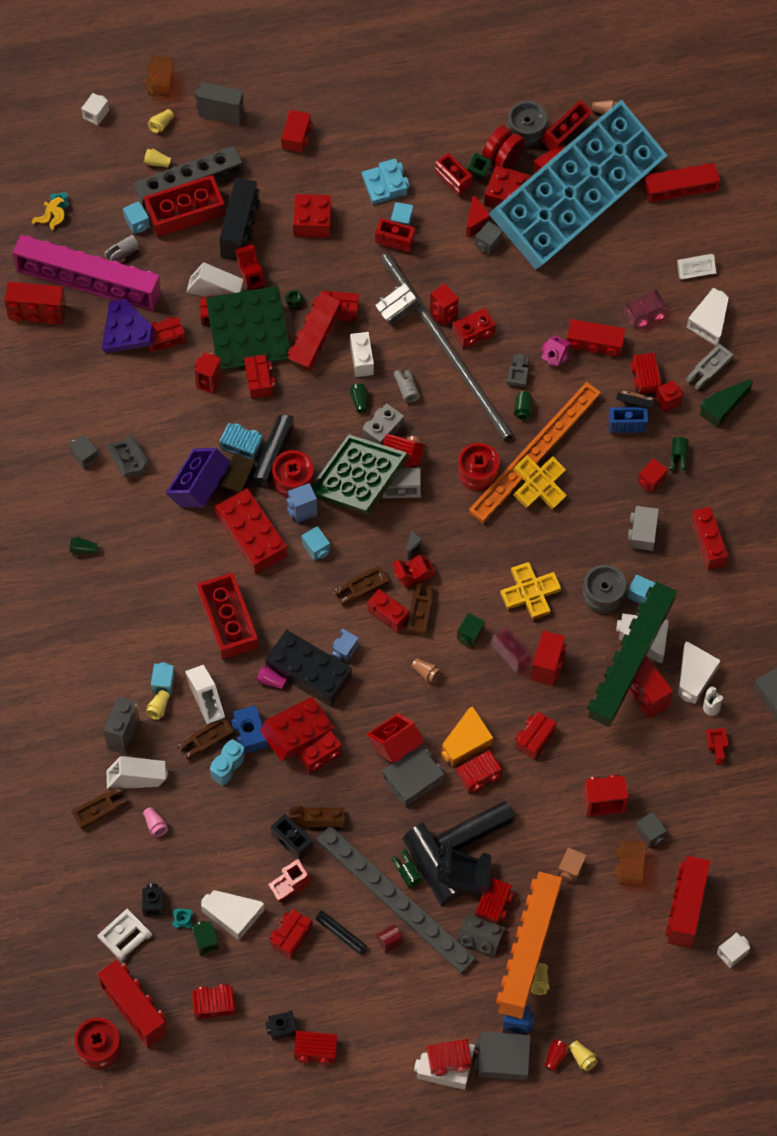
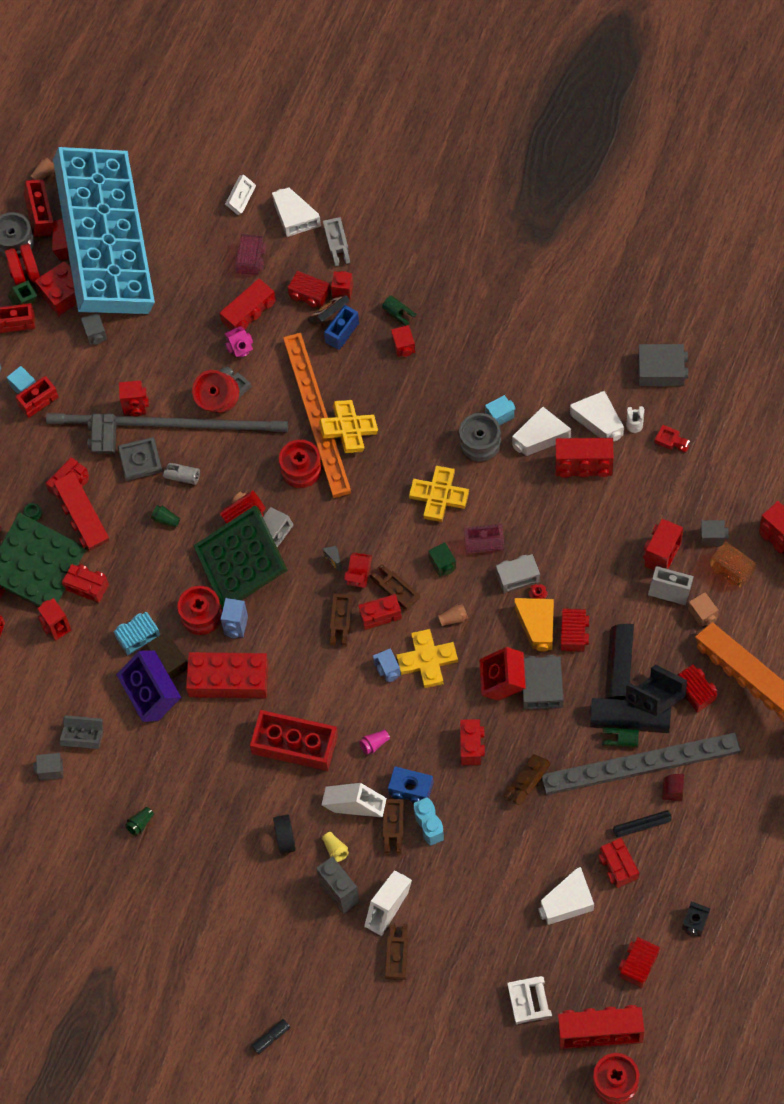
camera: 50 degrees left, 0 degrees up
(140, 658) = (284, 834): none -> black tyre
(154, 906) = (516, 963): black brick -> none
(156, 824) = (442, 913): bright pink cone -> none
(162, 677) = (312, 828): medium azure brick -> none
(178, 914) = (544, 937): teal plate -> none
(205, 937) = (575, 934): dark green brick -> none
(273, 448) = (163, 613): black brick -> none
(291, 837) = (534, 810): black brick -> none
(293, 880) = (572, 834): brick -> none
(295, 728) = (440, 746): red brick -> none
(309, 668) = (388, 704): black brick -> none
(315, 1047) = (733, 903): red brick -> none
(316, 543) = (277, 631): medium azure brick -> none
(361, 354) = (127, 490): white brick -> none
(374, 674) = (427, 658): none -> yellow plate
(385, 421) = (206, 513): light grey brick -> none
(397, 346) = (140, 459): none -> dark grey plate
(474, 328) = (169, 390): red brick -> none
(477, 217) = (67, 325): red slope -> none
(480, 935) = (717, 716): dark grey bracket -> none
(495, 361) = (215, 391): none -> red wheel
(495, 728) = (534, 588): none -> red plate
(500, 696) = (517, 573): none -> light grey piece
(523, 405) = (268, 397): dark green brick -> none
(535, 735) = (571, 567): red brick -> none
(549, 658) = (513, 514): red brick -> none
(573, 824) = (670, 585): none -> light grey brick
(632, 654) = (563, 446): dark green brick -> none
(644, 528) = (446, 375): light grey brick -> none
(681, 182) = (156, 158): red brick -> none
(709, 538) = (489, 334): red brick -> none
(722, 403) = (378, 254): dark green slope -> none

